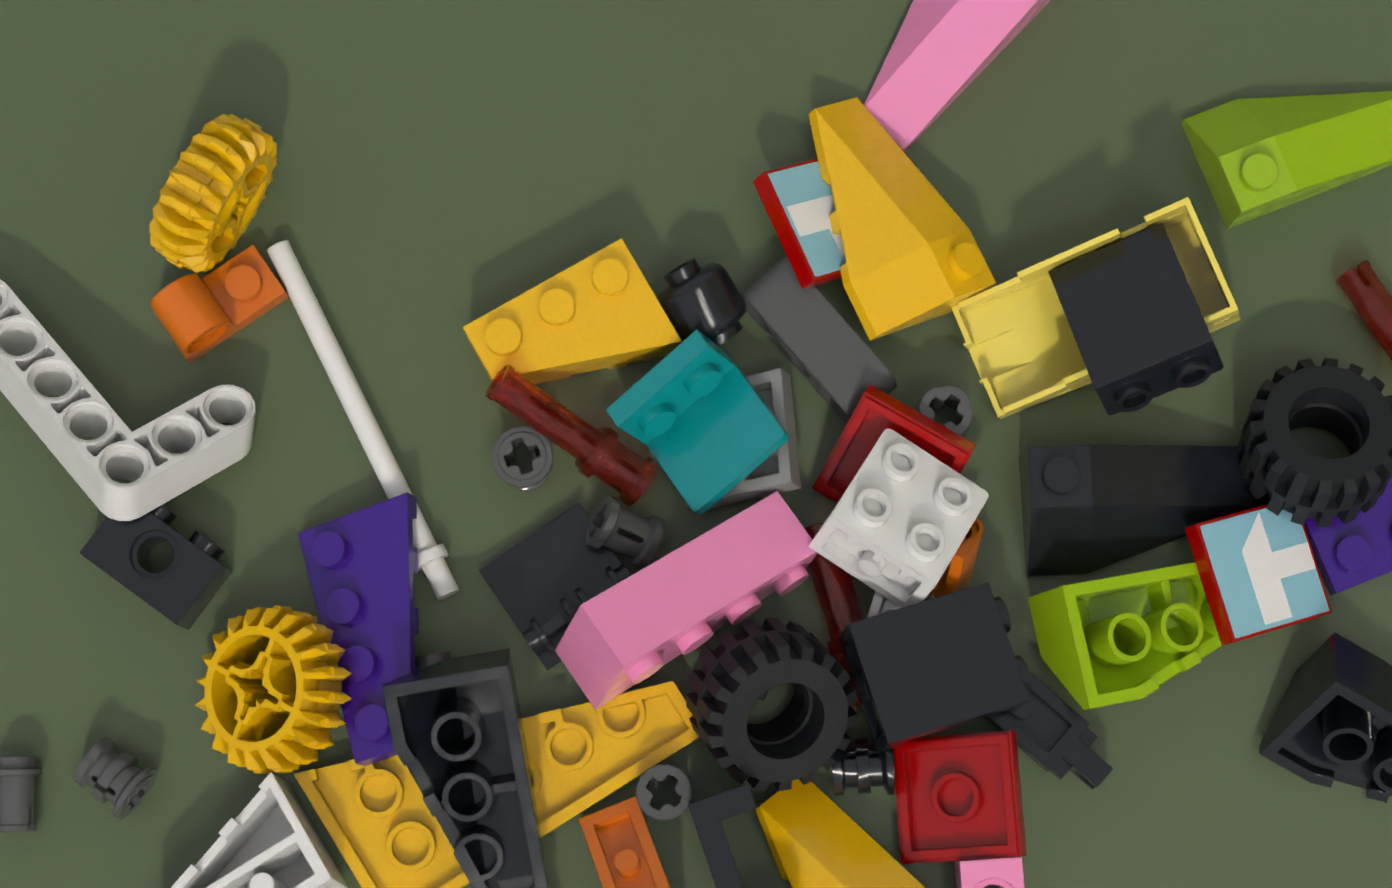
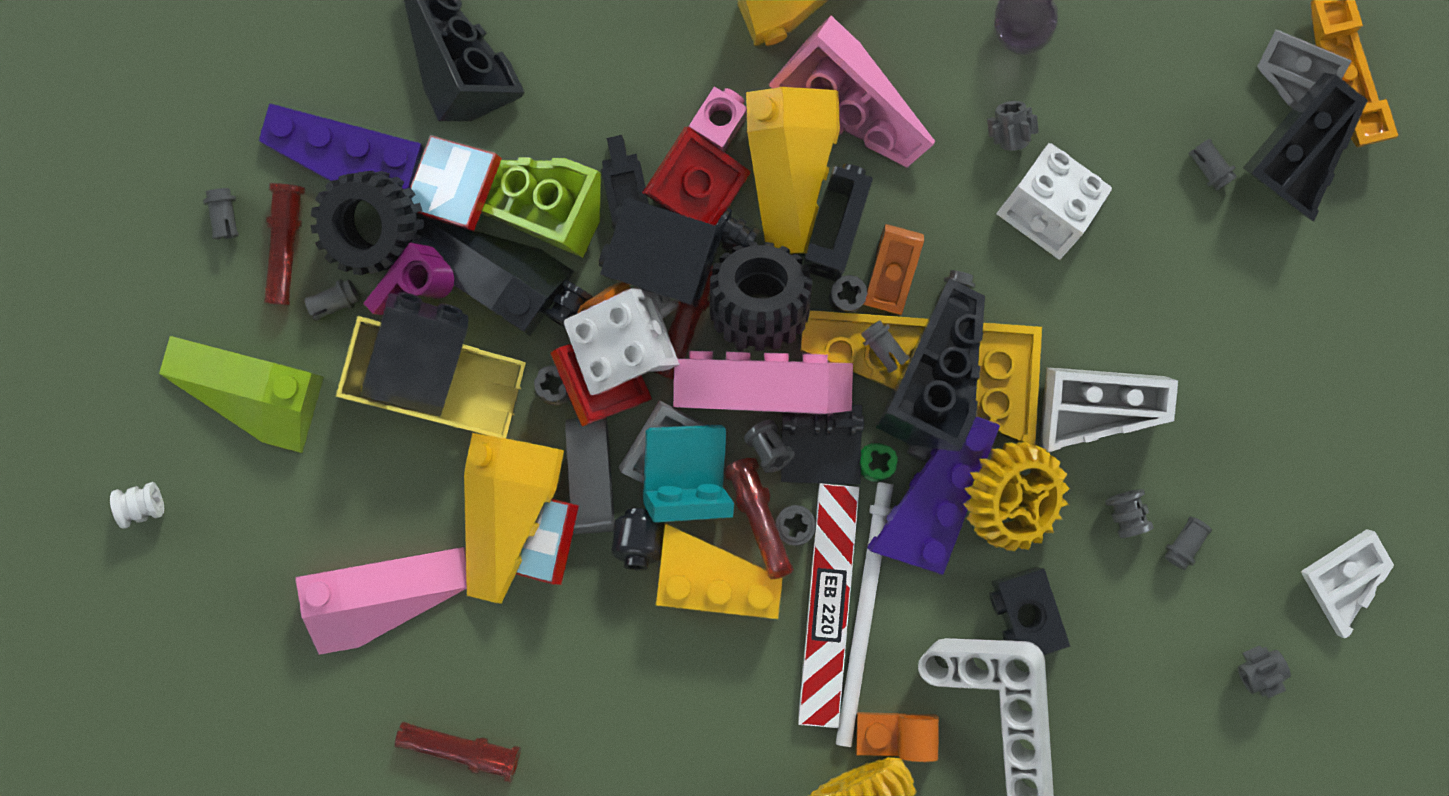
camera: 145 degrees left, 5 degrees up
(414, 398) = (828, 606): none -> tile
(484, 630) = (890, 464): none -> green bush
(571, 757) = (882, 344): none -> dark grey pin
(1002, 526) = (567, 303): none -> black bush
(1211, 422) = (410, 275): none -> magenta plate
(1289, 323) = (332, 299): none -> dark grey pin

